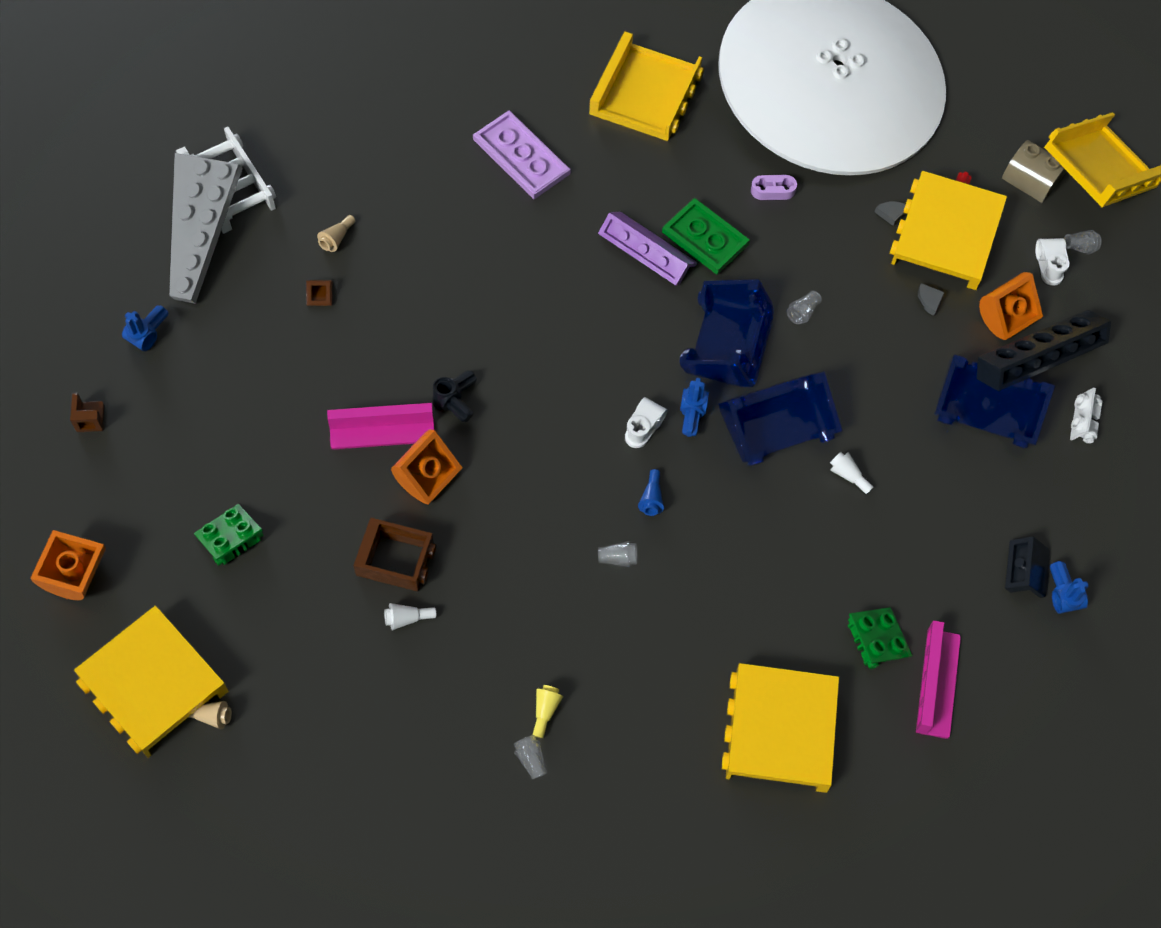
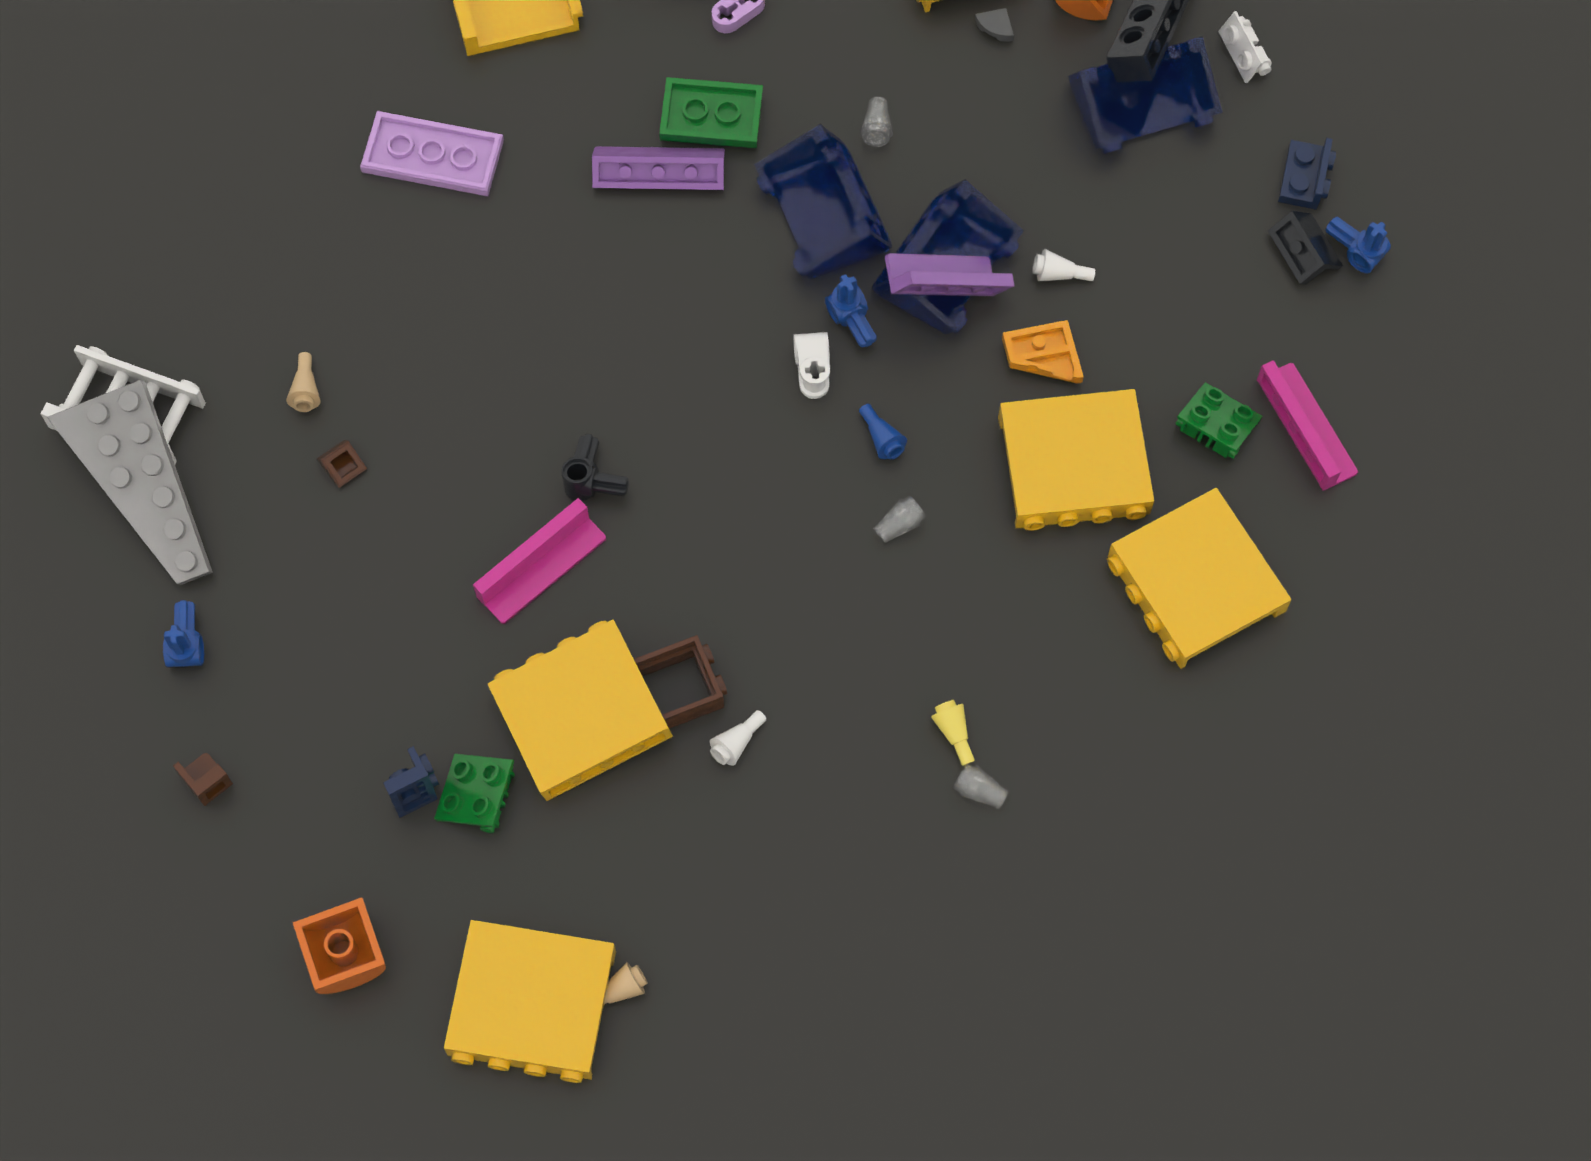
camera: 35 degrees left, 5 degrees up
(191, 502) = (412, 787): none -> dark blue bracket
(325, 528) = (579, 709): none -> yellow panel
(426, 467) = (629, 571): orange brick -> none
(761, 595) = (1076, 459): none -> yellow panel
(765, 422) = (944, 275): none -> medium lavender panel
(797, 515) = (1044, 351): none -> light orange wing
(1065, 521) = (1305, 173): none -> dark blue bracket

